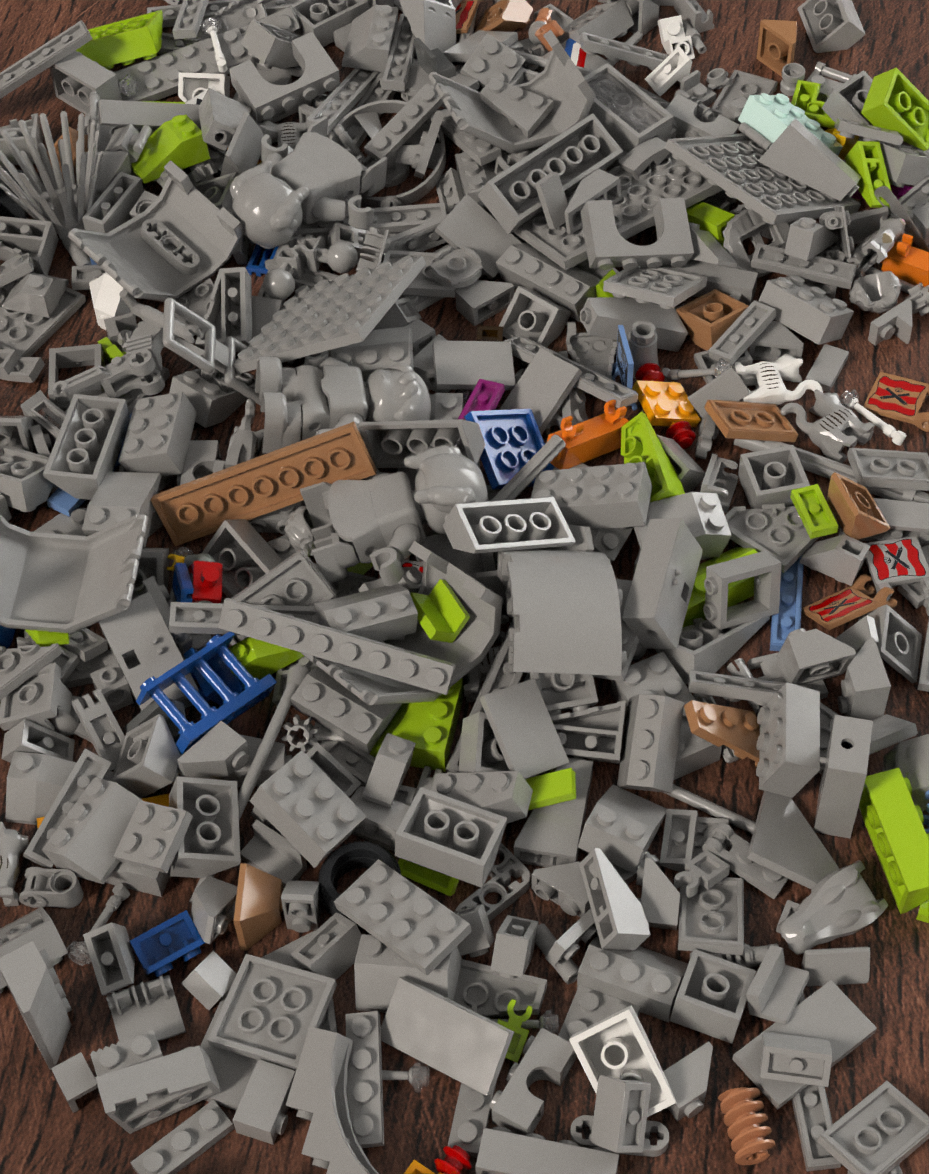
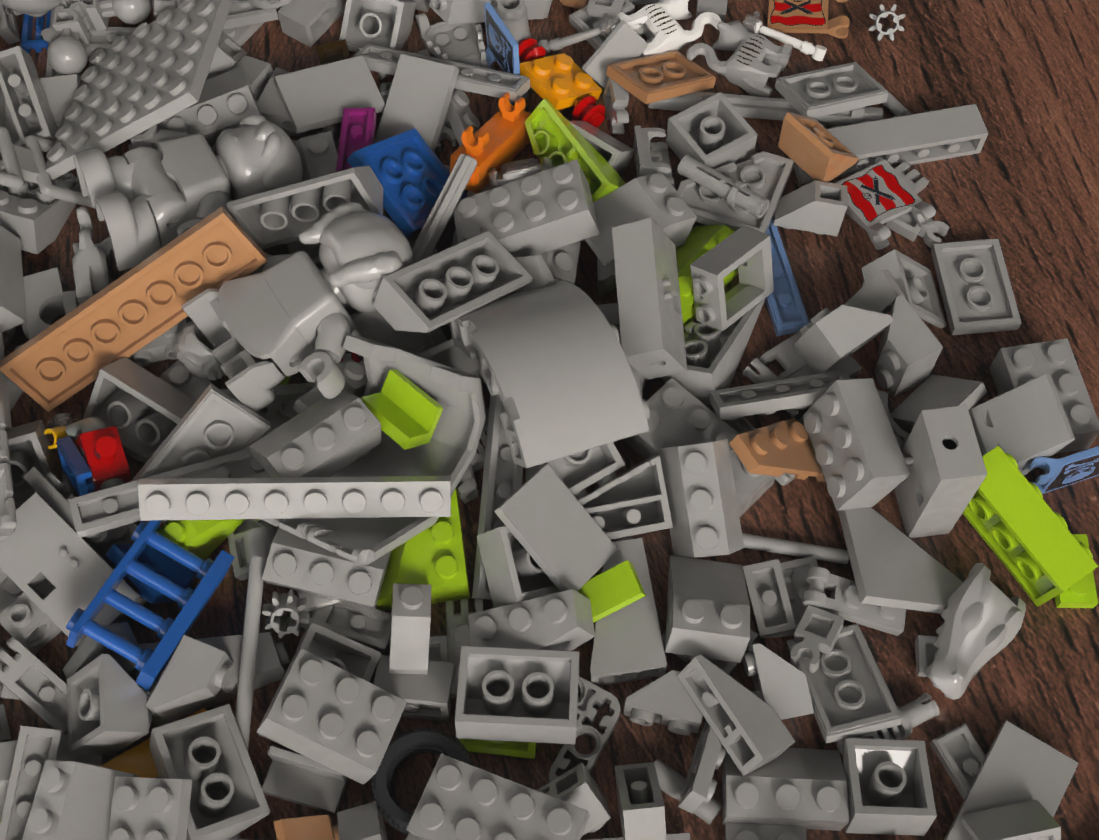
camera: 20 degrees left, 10 degrees up
(598, 460) = (517, 170): none -> light grey tile
(772, 526) = (734, 192): none -> light grey pin
(776, 988) = (955, 754): light grey panel -> none
(814, 511) = (773, 162): lime plate -> none
(837, 964) = (1000, 699): light grey slope -> none
(848, 604) = (845, 260): medium nougat flag -> none

